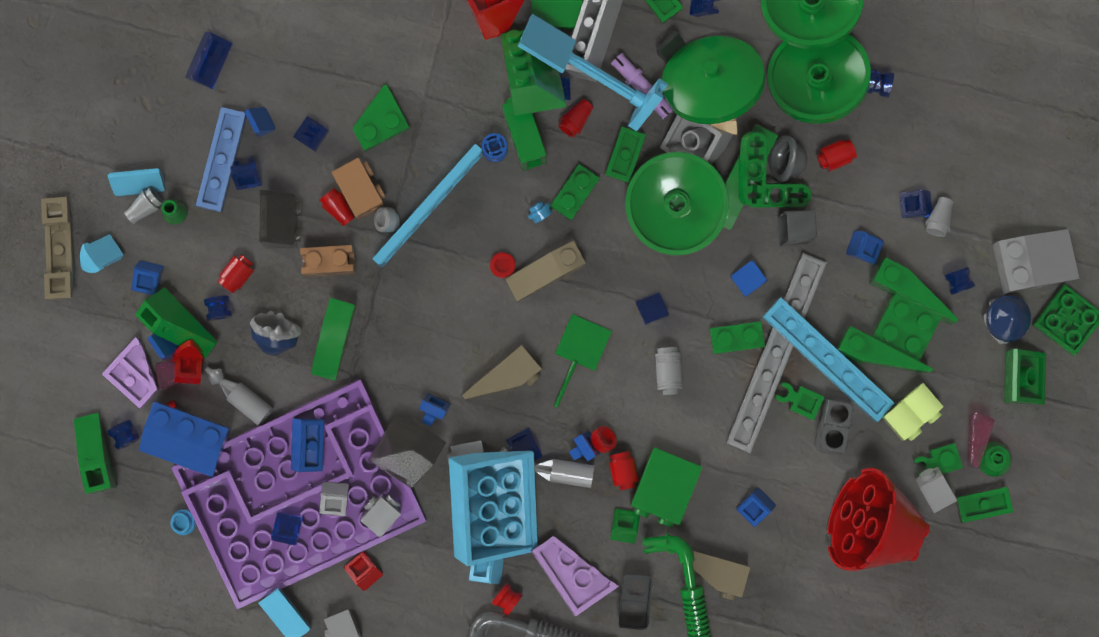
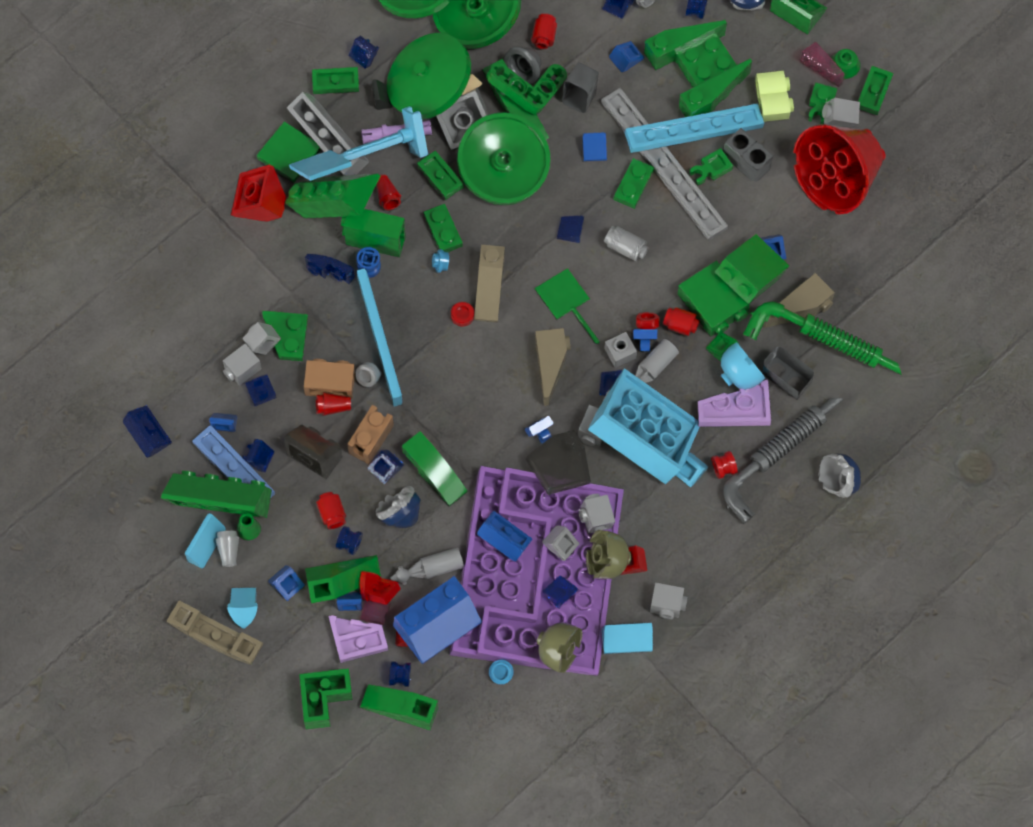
camera: 60 degrees left, 15 degrees down
(59, 375) = (319, 690): none -> green brick
(177, 165) = (217, 494): none -> green slope
(230, 561) = (558, 645): none -> olive cylinder
(312, 293) = (385, 466): none -> clear blue slope
(320, 101) = (241, 365): none -> light grey brick
(345, 550) = (608, 555): none -> olive cylinder
(356, 101) = (261, 338): none -> light grey plate
(463, 109) = (323, 265): none -> clear blue slope
(563, 441) = (620, 356): none -> light grey plate
(609, 556) = (739, 368): none -> medium azure cylinder
(714, 506) = (752, 268): none -> green brick

